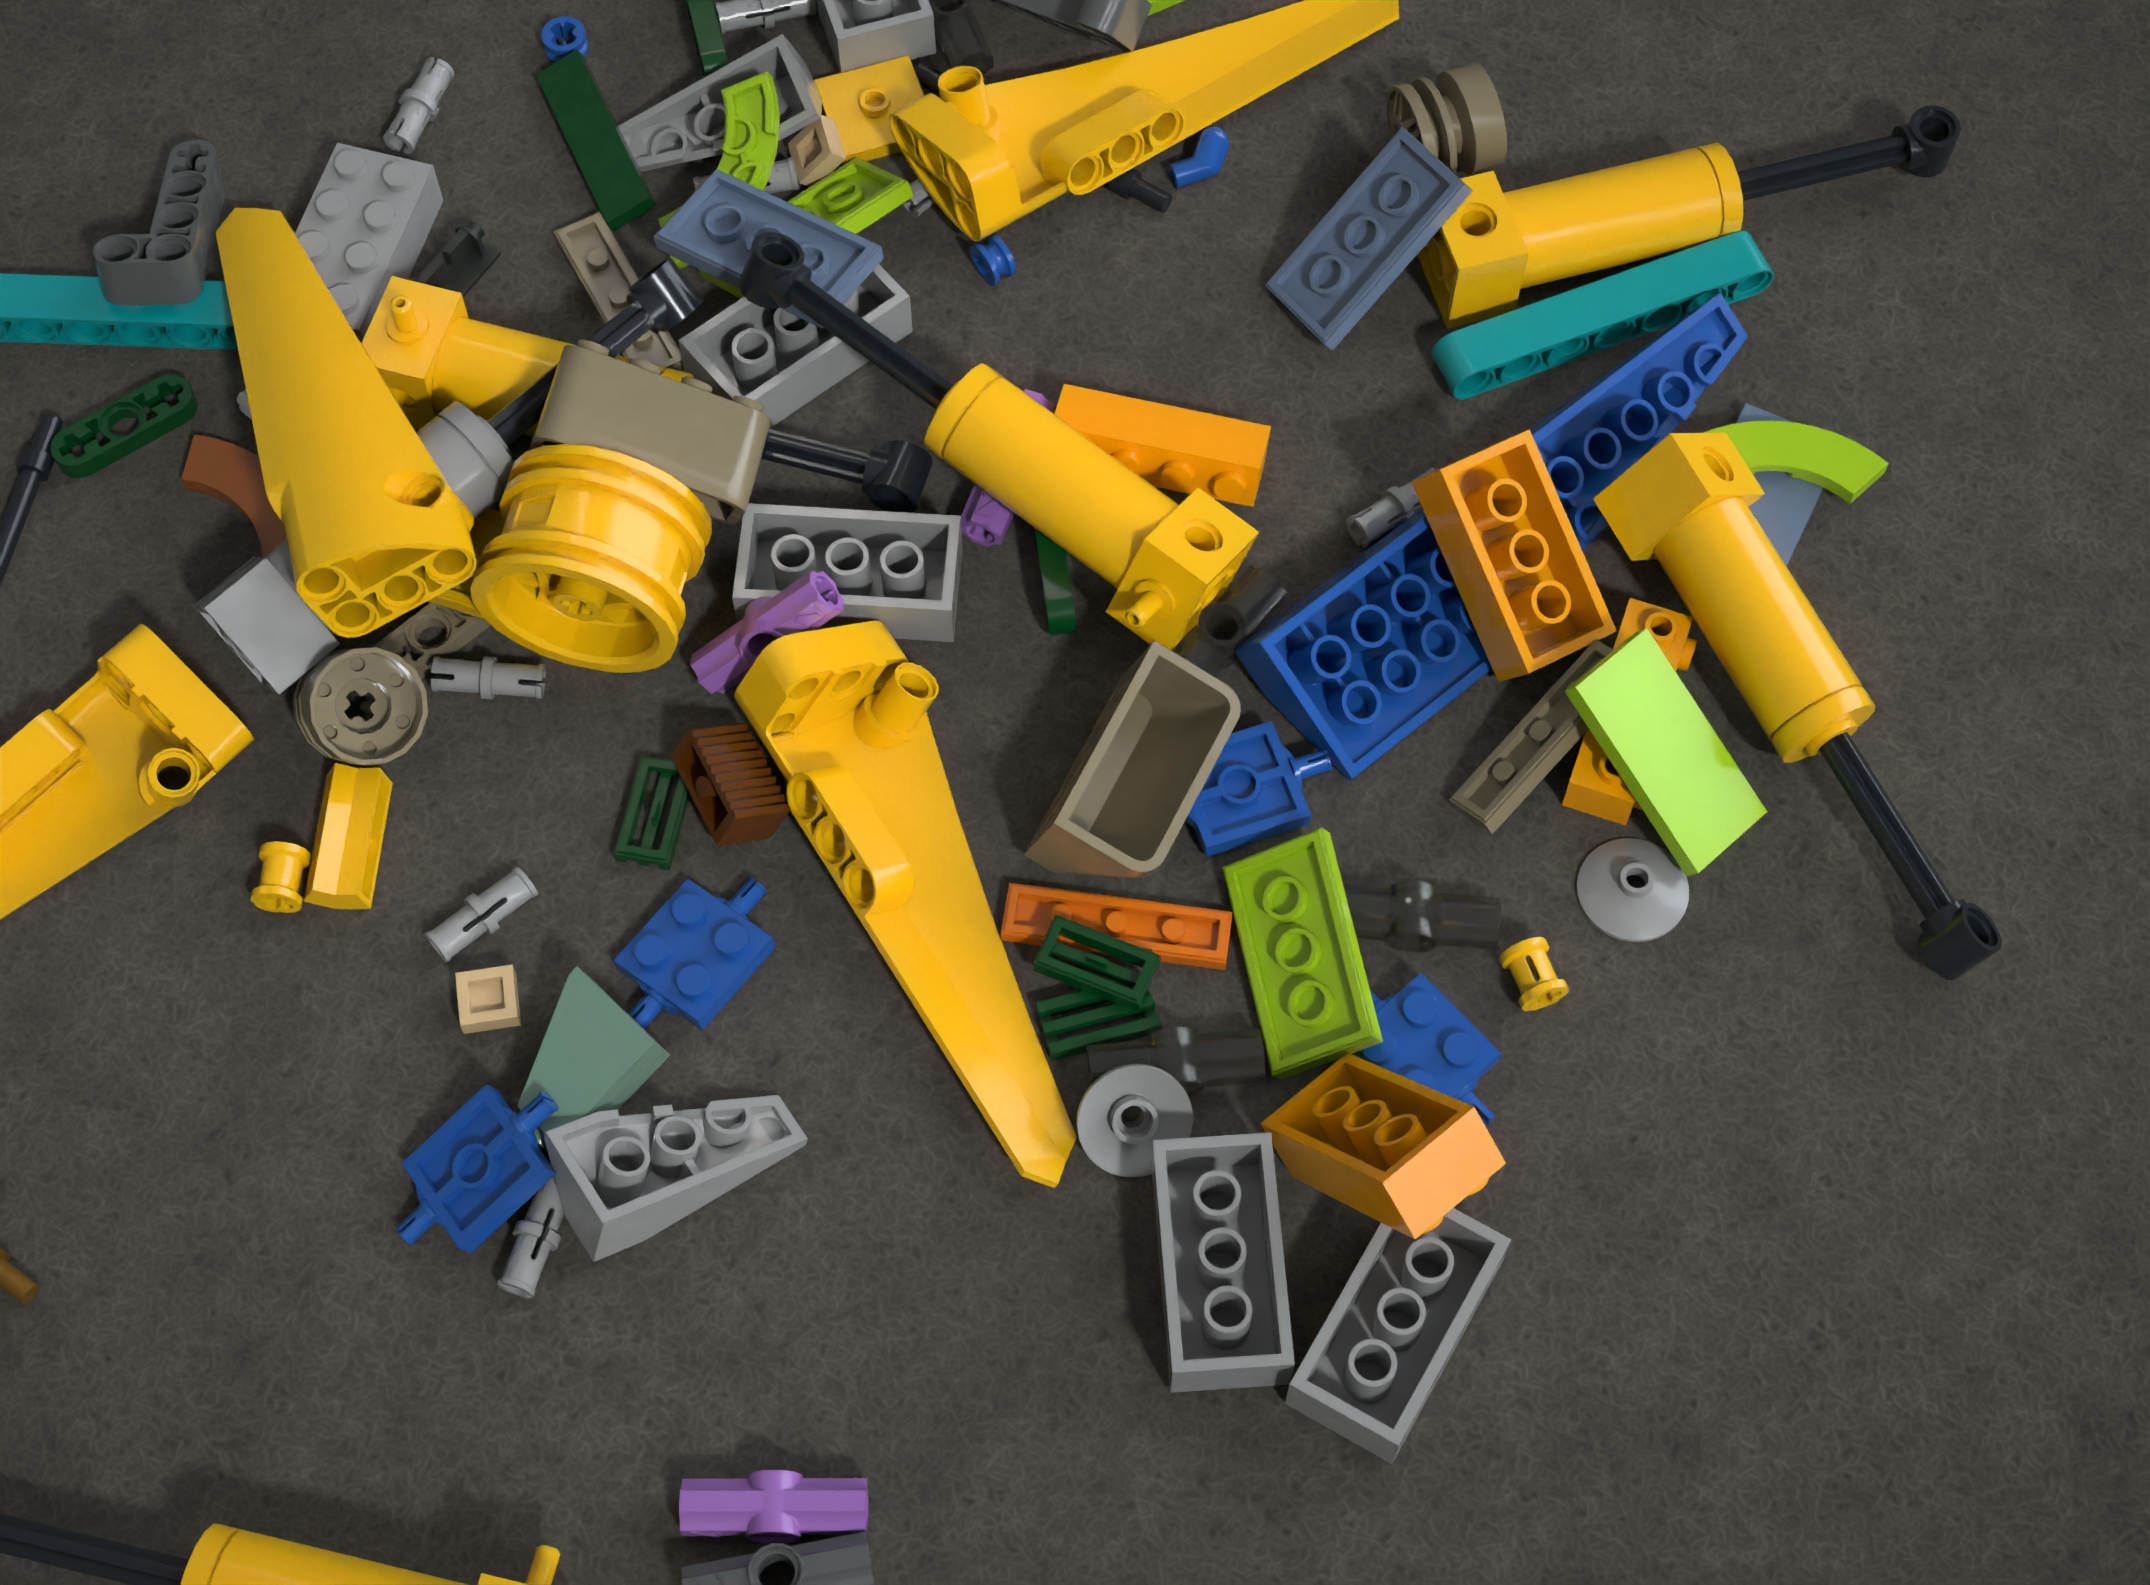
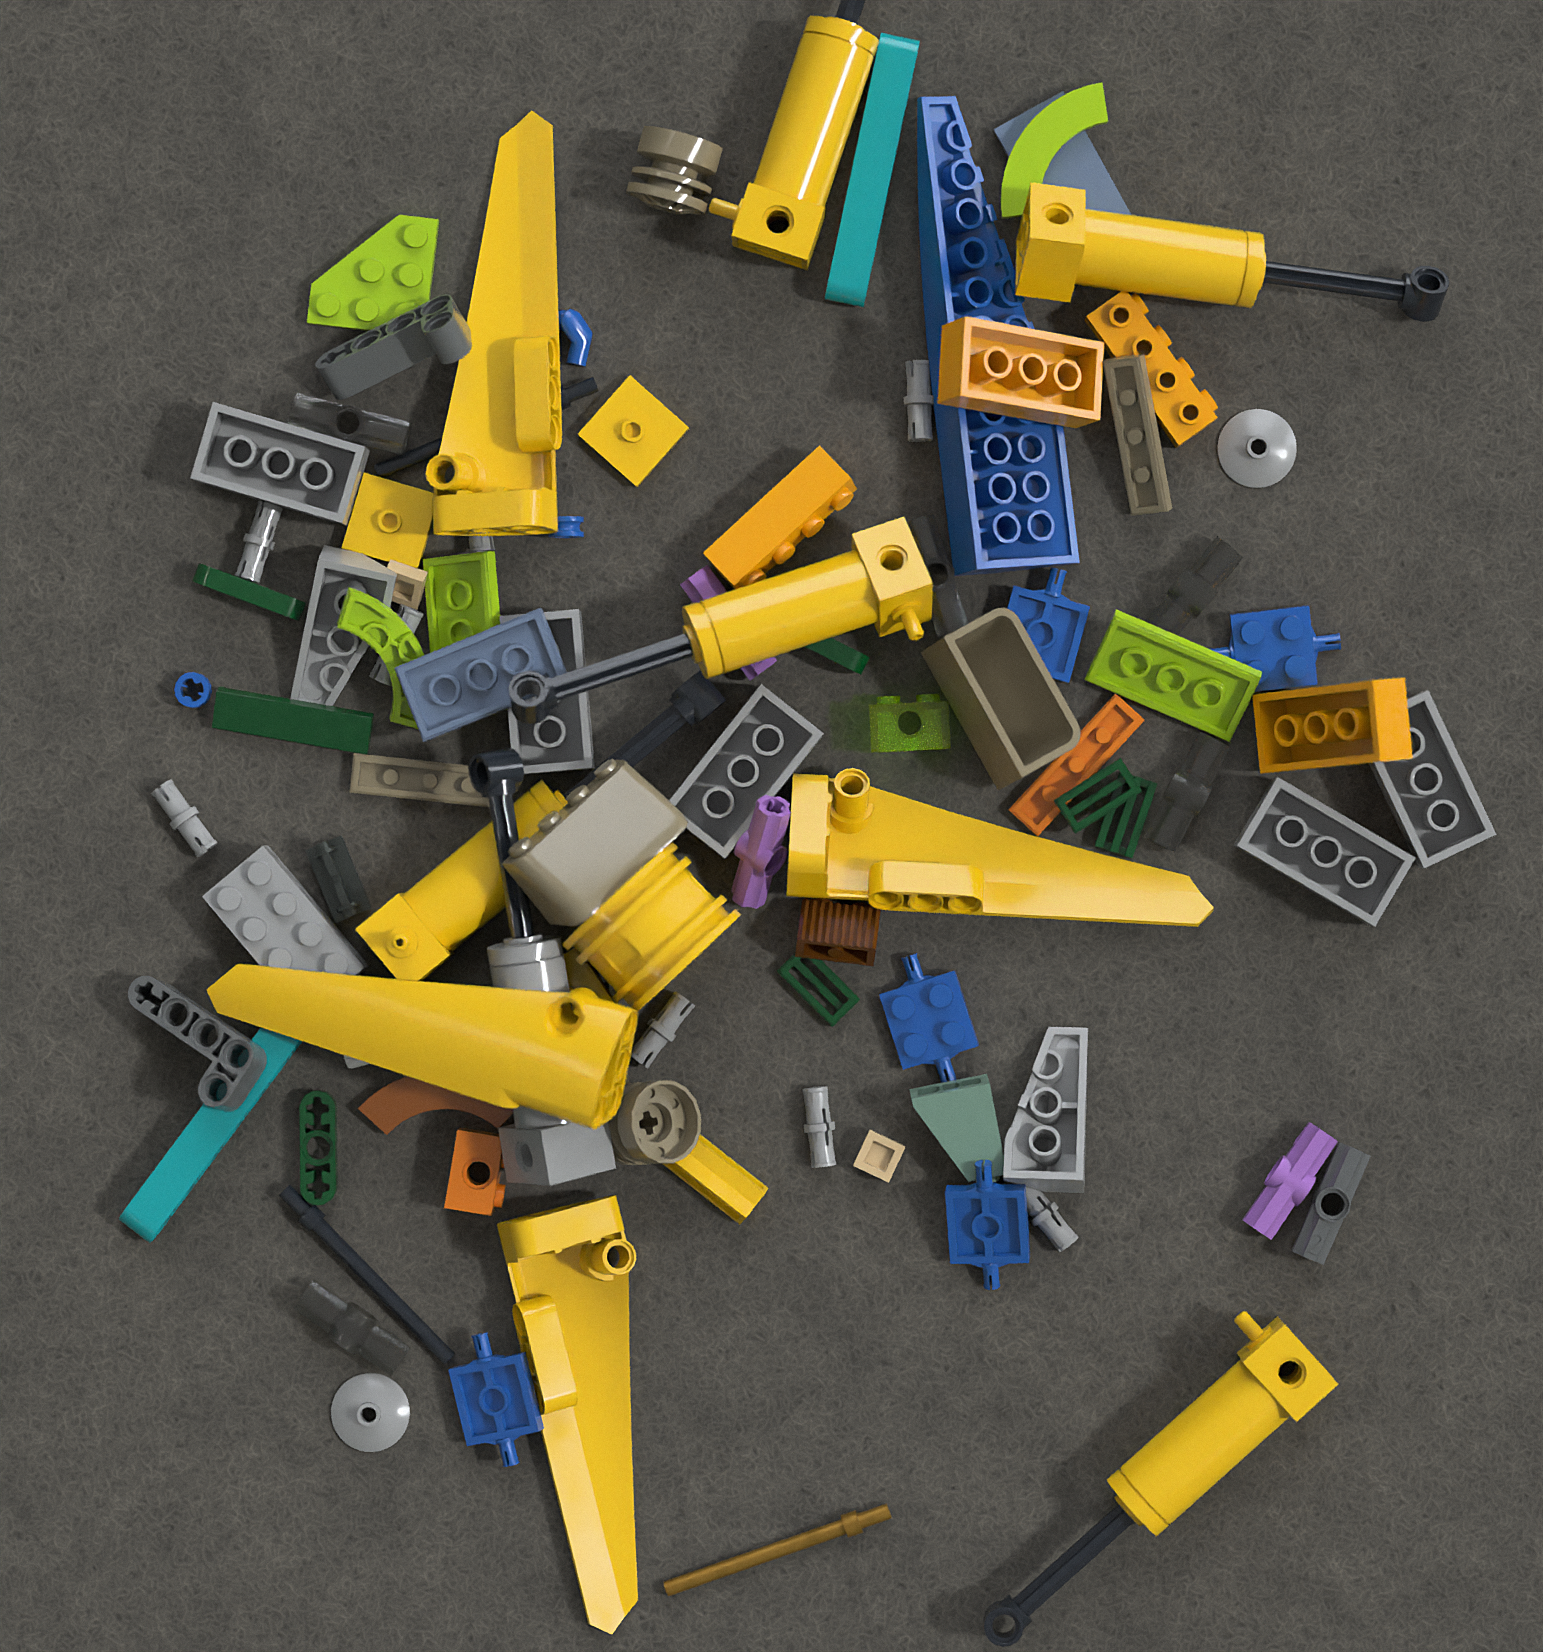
camera: 55 degrees left, 25 degrees up
(166, 578) = (462, 1190): none -> orange brick
(280, 877) = (717, 1229): yellow bush -> none
(1034, 743) = (887, 736): none -> clear neon green brick
(1126, 1146) = (1208, 840): light grey dish -> none
(1144, 267) = (633, 431): none -> yellow plate
(1368, 238) = (732, 290): sand blue tile -> none
(1532, 954) = (1264, 541): yellow bush -> none
(1666, 752) = (1202, 376): tile -> none

